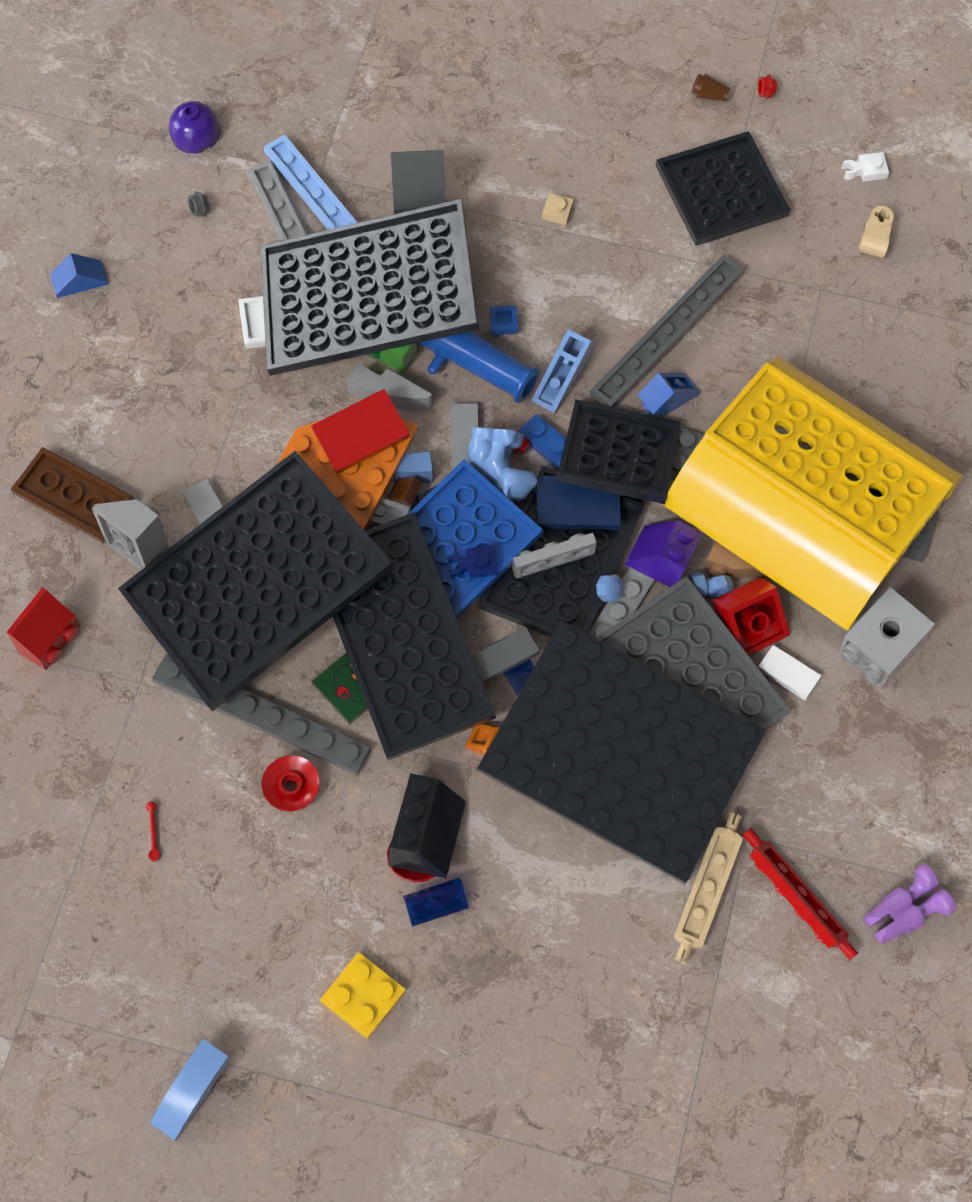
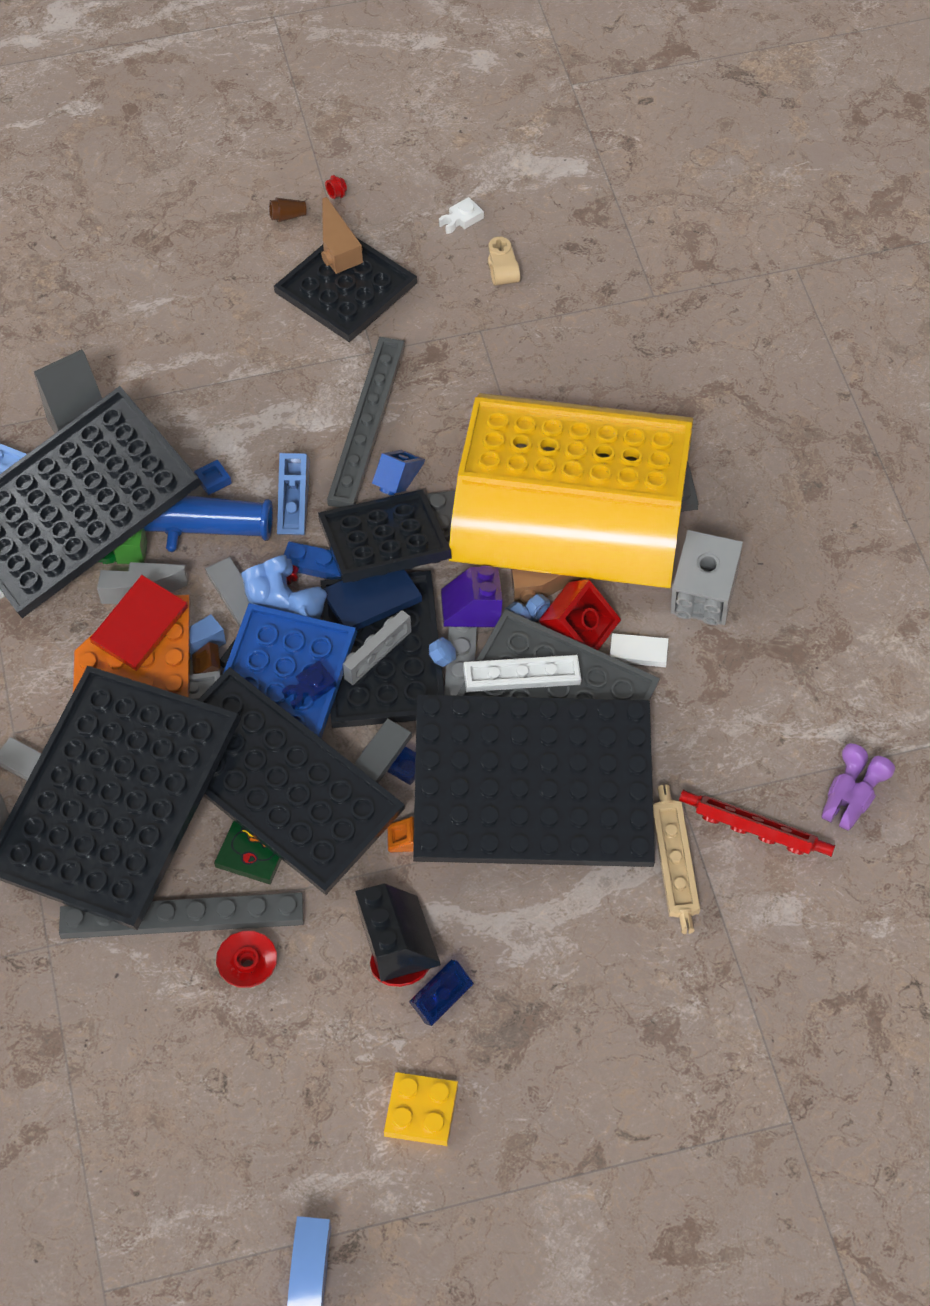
camera: 25 degrees left, 10 degrees down
(154, 855) = (150, 1088): red hinge -> none
(557, 209) = (207, 365): tan plate -> none
(667, 645) = (522, 673): none -> white tile
(735, 146) = (339, 243): none -> medium nougat slope

